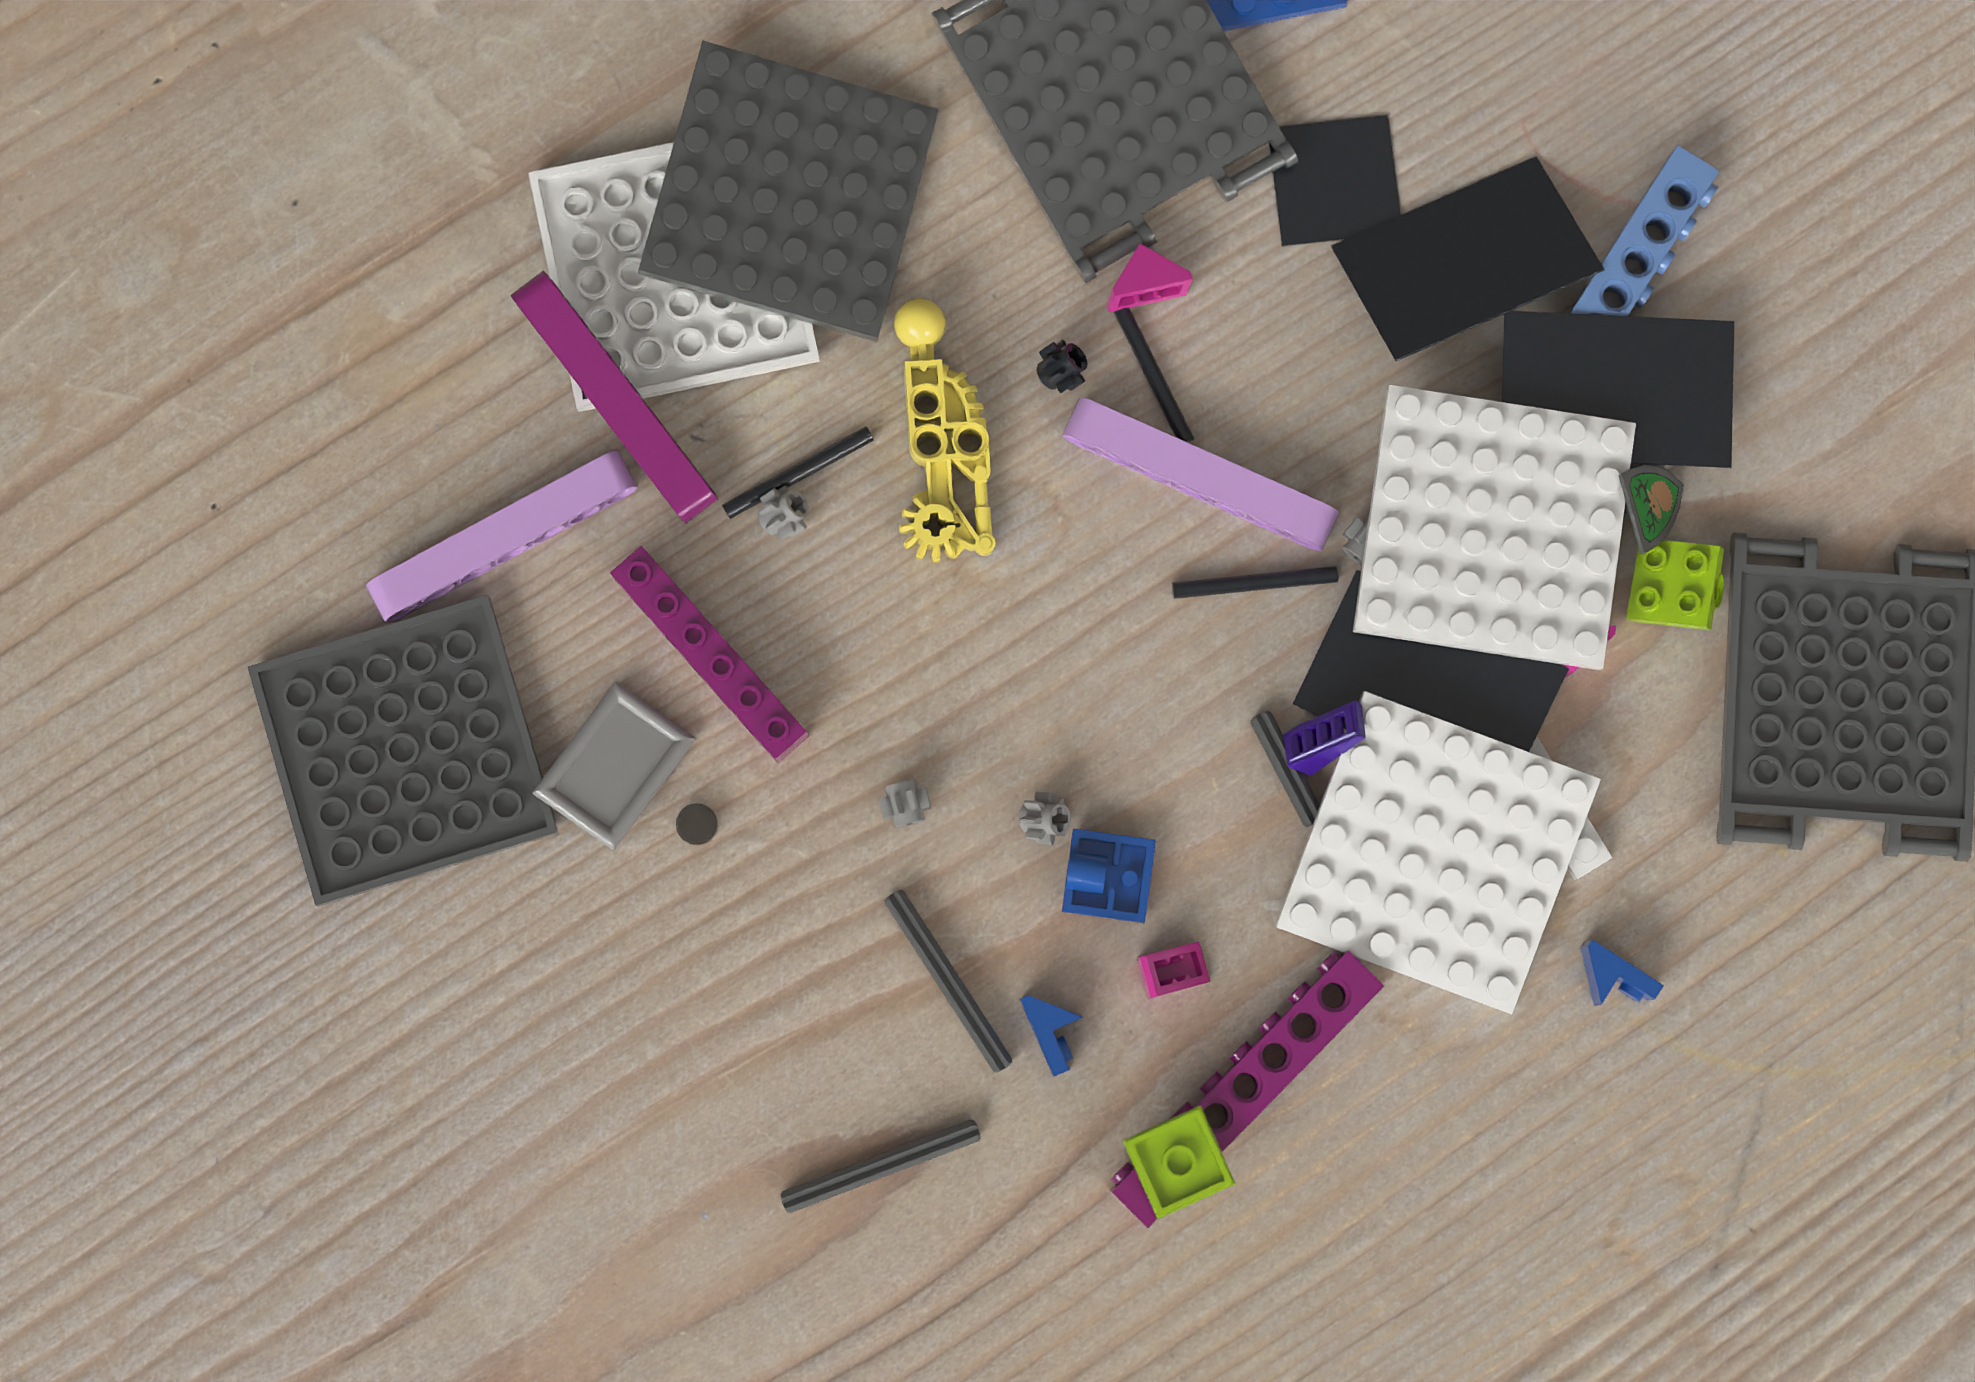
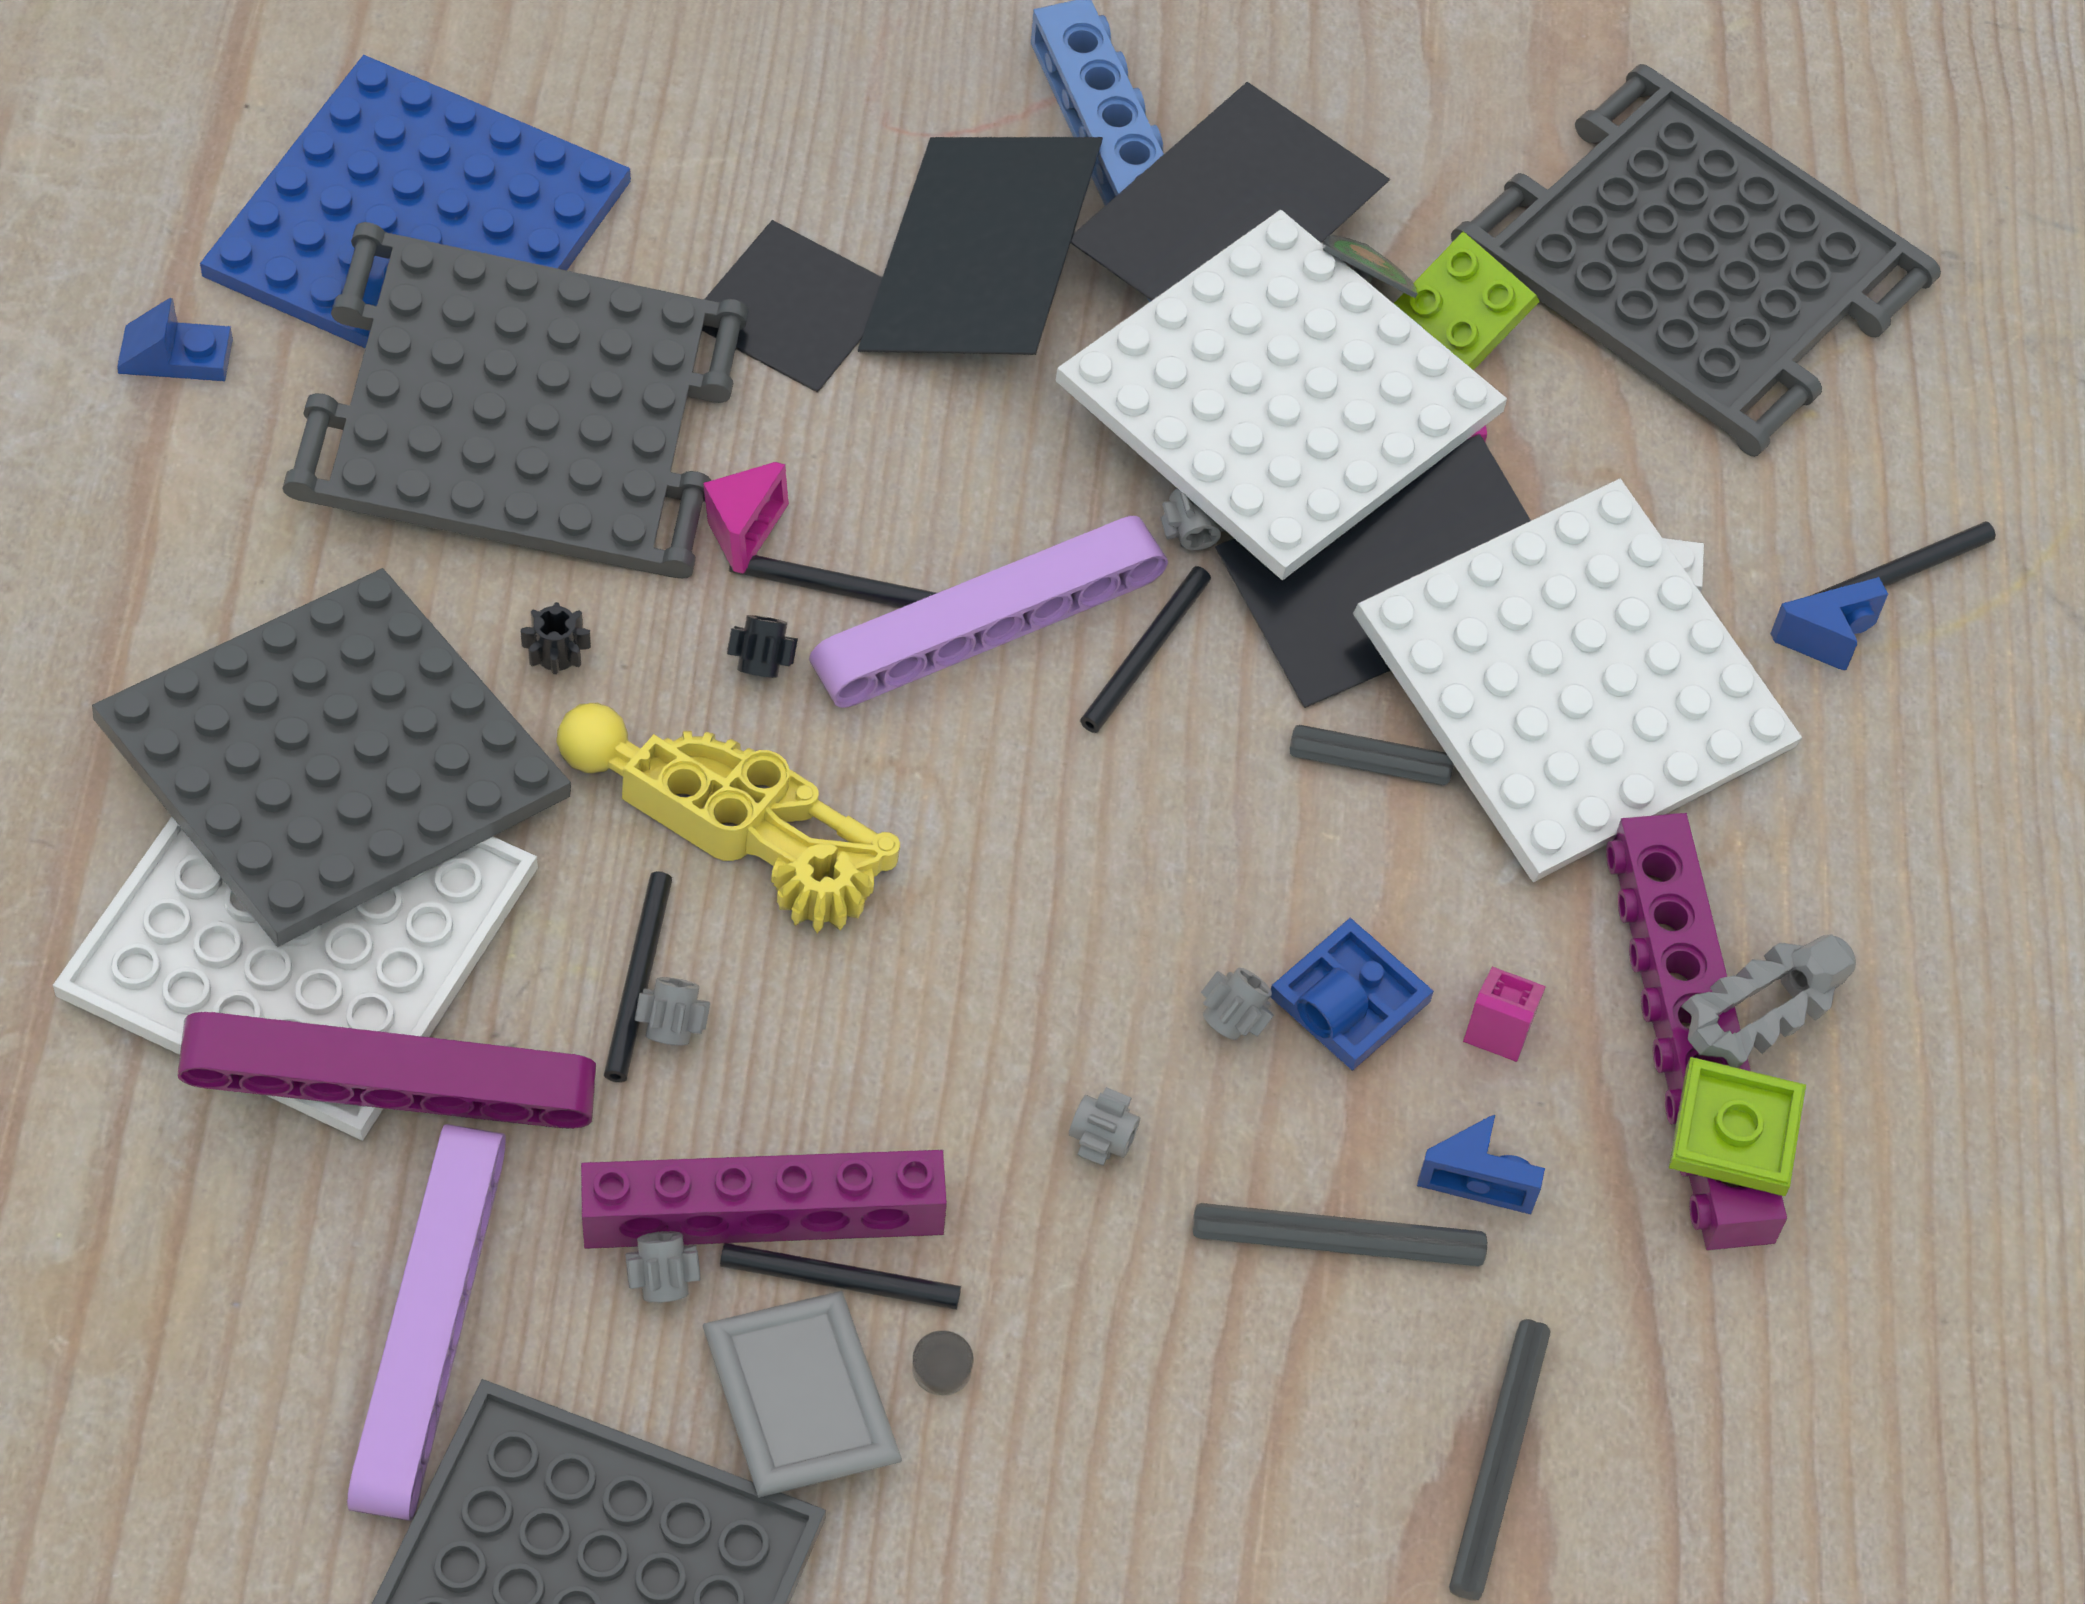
camera: 55 degrees left, 25 degrees down
(626, 634) = (662, 1266): none -> light grey gear
(705, 730) = (840, 1276): none -> black piece
(961, 242) = (555, 638): none -> black gear
(1311, 744) = (1354, 692): dark purple slope -> none
(1334, 1128) = (1805, 971): none -> light grey sword
(1702, 990) = (1926, 556): none -> black bar

